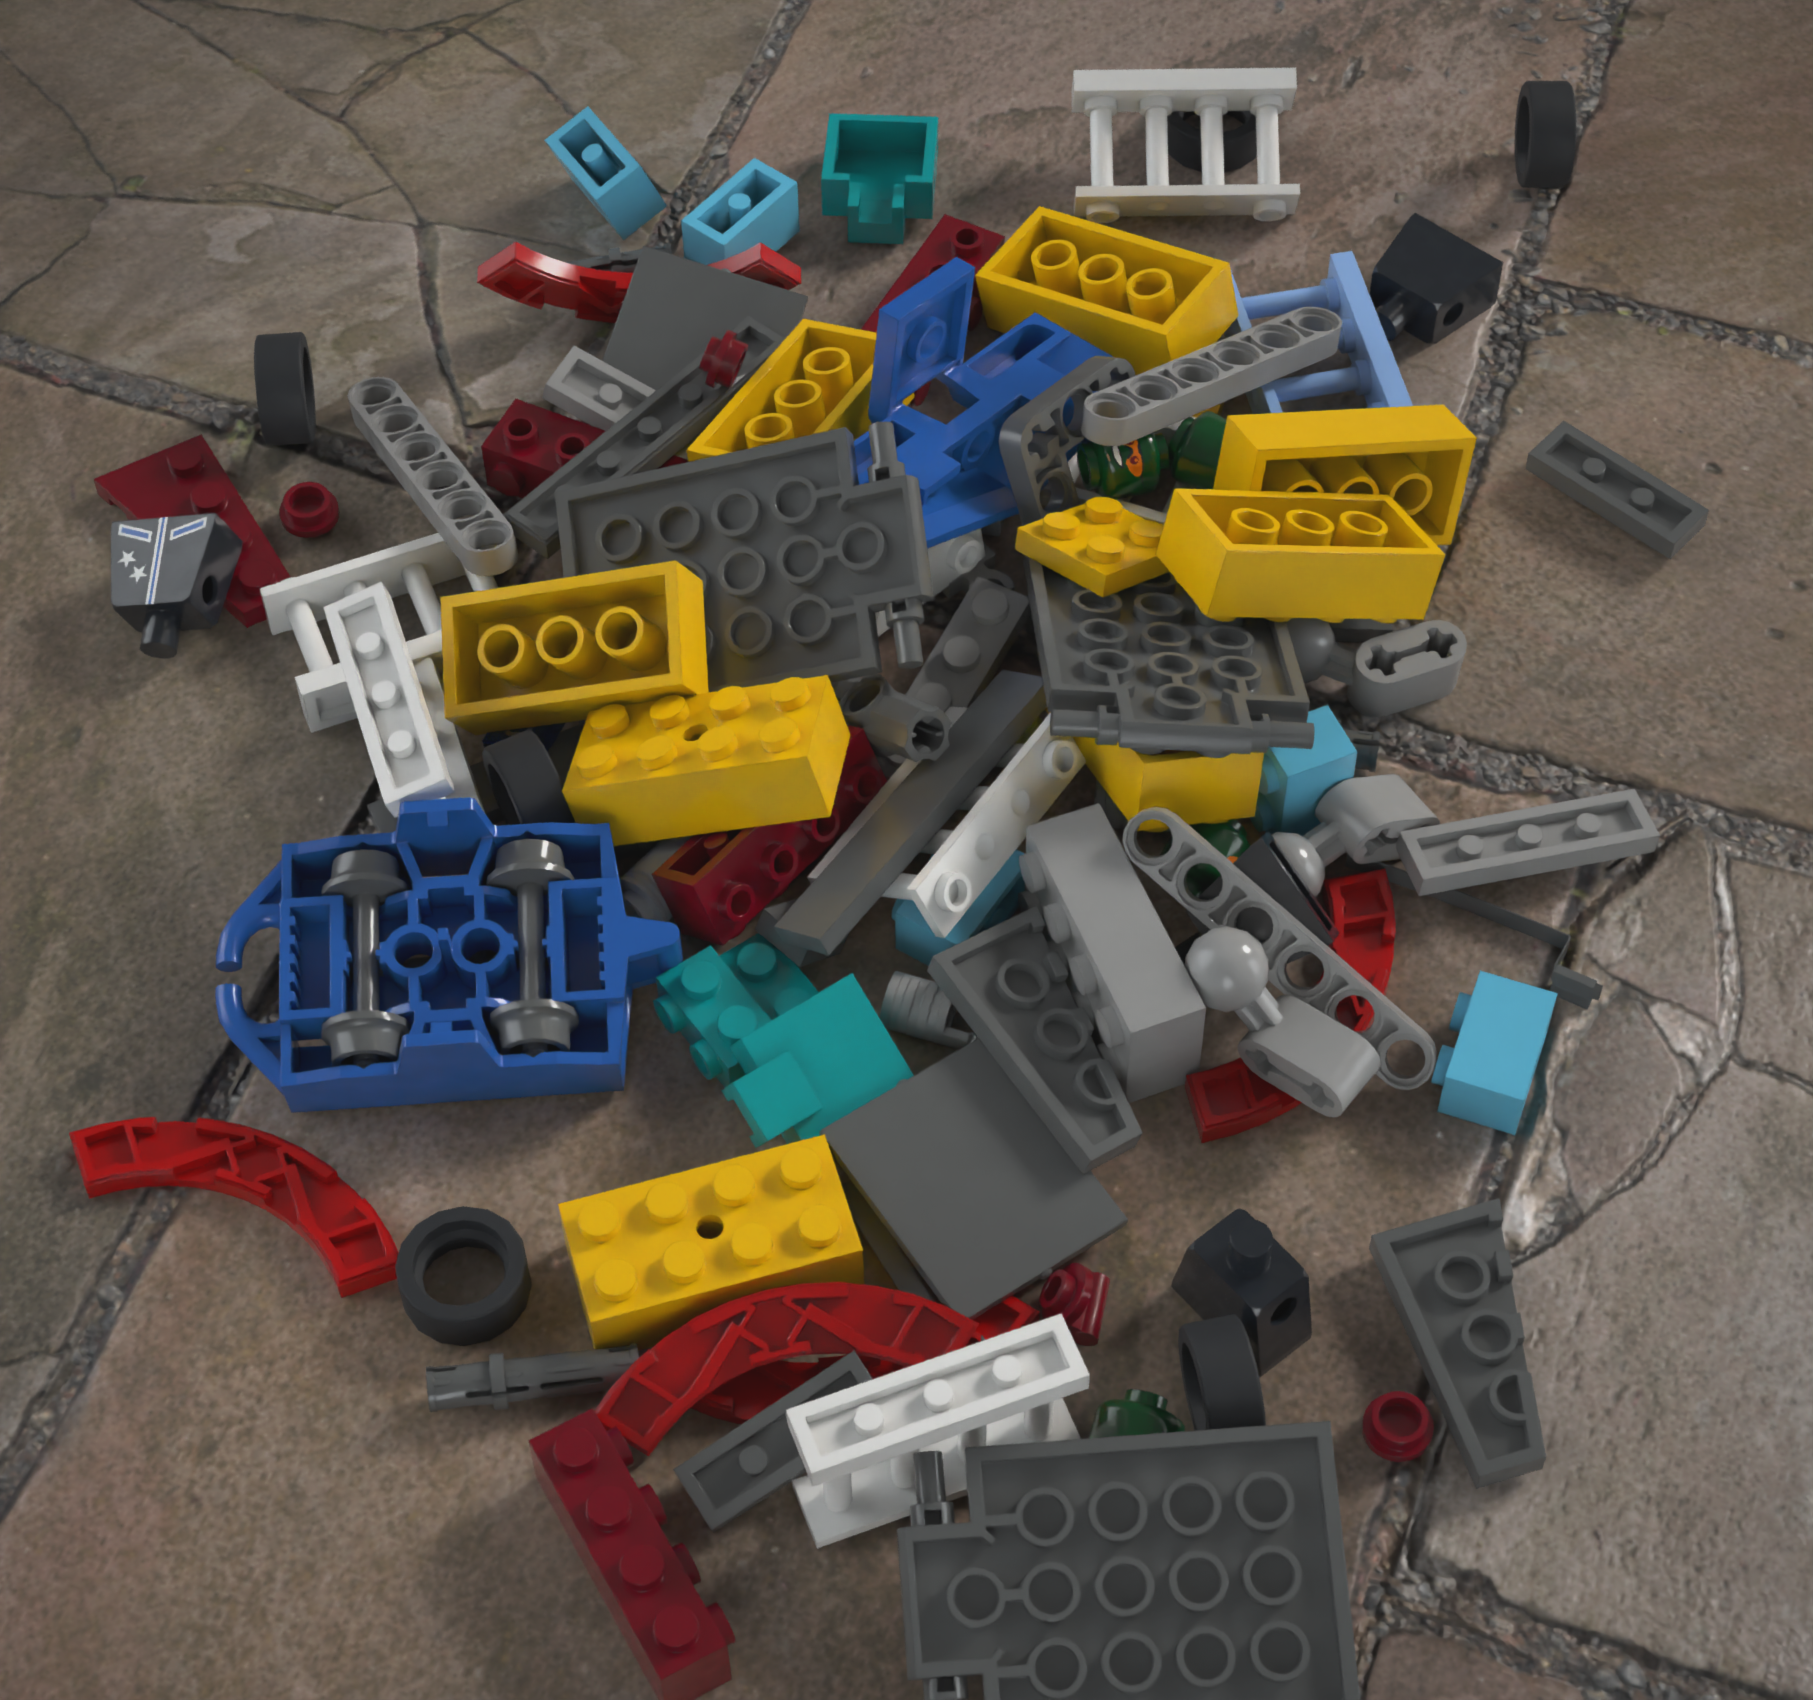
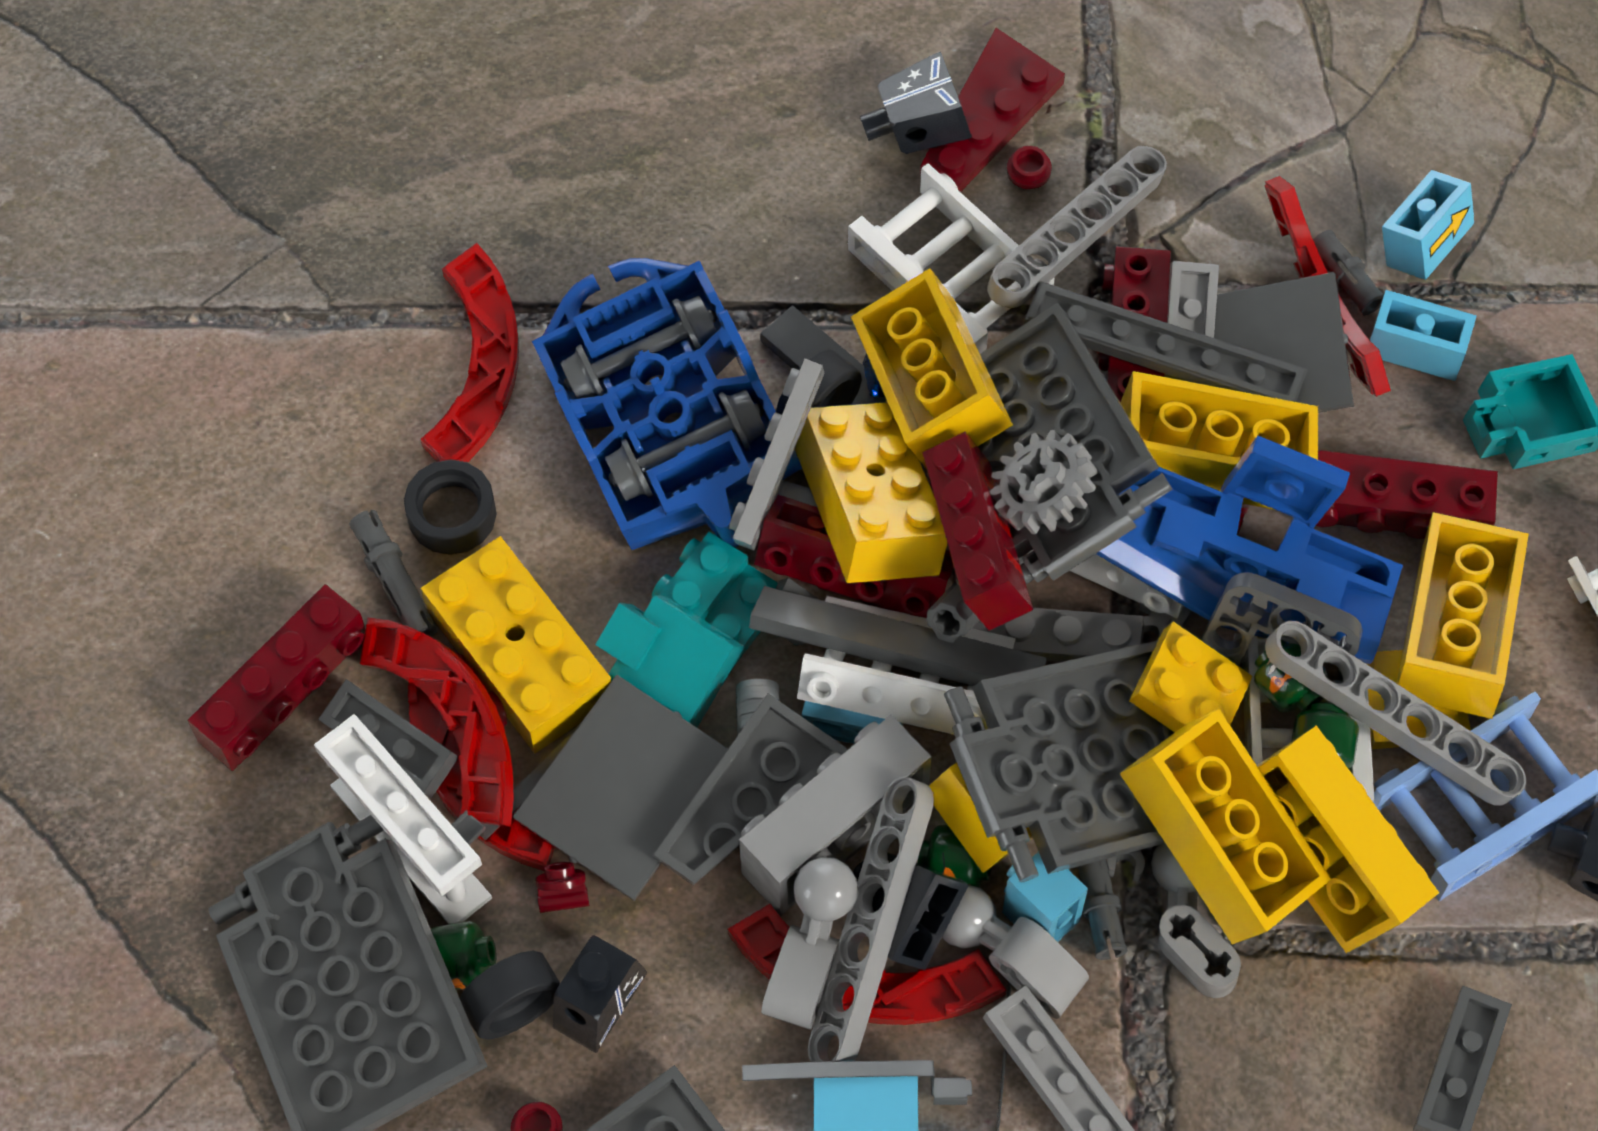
camera: 70 degrees right, 10 degrees up
(284, 388) = (1114, 104): black tyre -> none
(398, 704) = (804, 276): white fence -> none
(621, 828) = (768, 472): none -> light grey plate
(723, 360) = (1238, 365): dark red plate -> none
(820, 522) = (1043, 482): none -> light grey gear
(845, 641) = (976, 532): none -> dark red brick
(1490, 958) = (944, 1089): none -> piece

